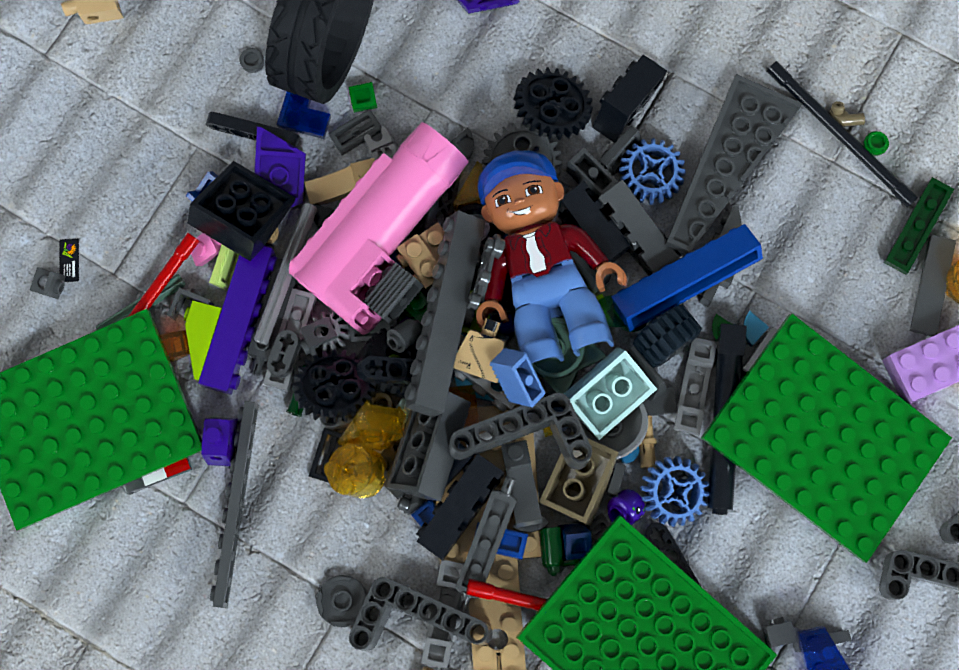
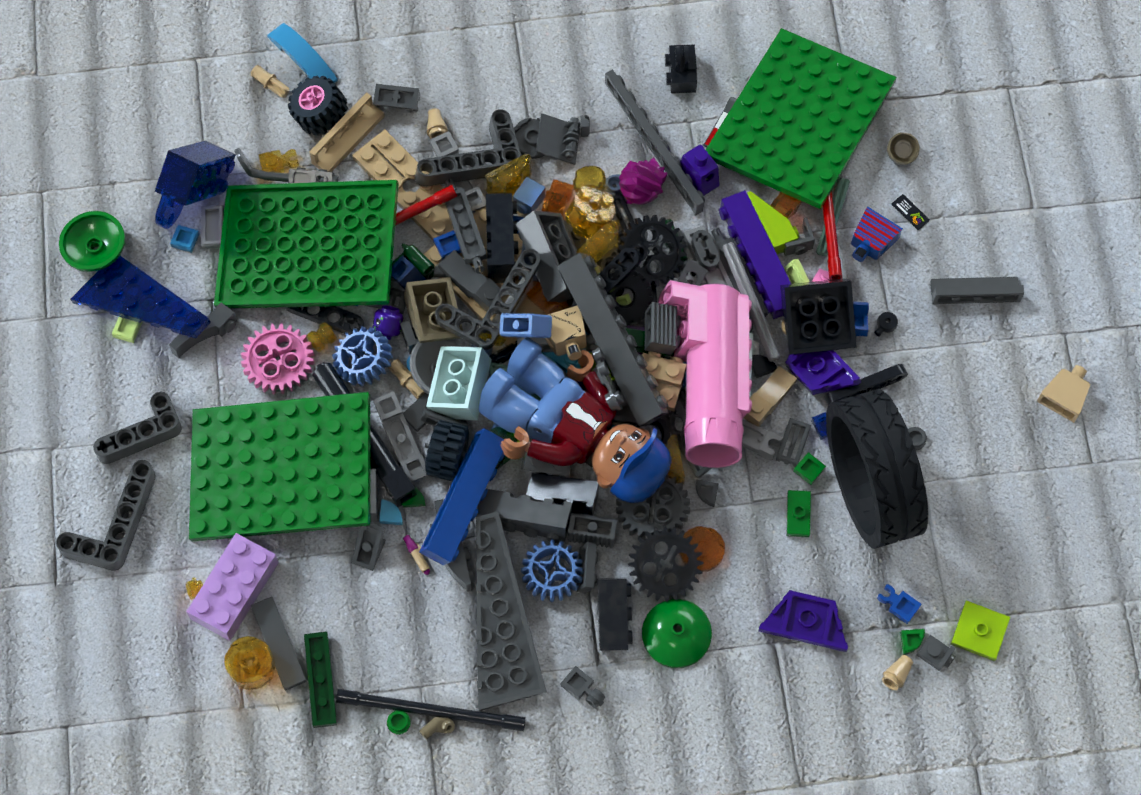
camera: 135 degrees right, 10 degrees down
(21, 317) = (903, 148): none -> dark tan hair
(54, 284) = (901, 184): dark grey bracket -> none
(81, 145) = (976, 290): none -> dark grey panel
(123, 257) = (874, 235): none -> blue torso
(145, 560) = (682, 69): none -> black brick
(188, 177) = (886, 327): none -> black piece
(281, 467) = (642, 181): none -> magenta hair
(285, 573) = (584, 125): none -> dark grey tile
(301, 492) = (610, 181): none -> sand blue plate
(321, 577) = (558, 138): none -> dark grey hinge
(329, 508) = (589, 176): none -> clear yellow hair
(374, 515) = (558, 197): none -> clear orange slope
(397, 537) = (529, 196): none -> medium blue brick
(404, 70) = (798, 513): none -> green plate
(404, 335) = (630, 309): dark grey brick -> none
(406, 565) = (509, 176): none -> clear yellow slope
(500, 101) = (710, 545): none -> clear orange tile
(588, 63) = (672, 647): none -> green dish
(697, 543) = (321, 337): none -> clear yellow wheel
(703, 63) = (578, 684): none -> dark grey plate
(749, 576) = (270, 342): none -> bright pink gear
(754, 279) = (414, 549): none -> piece
(799, 305) = (368, 546): none -> dark grey slope

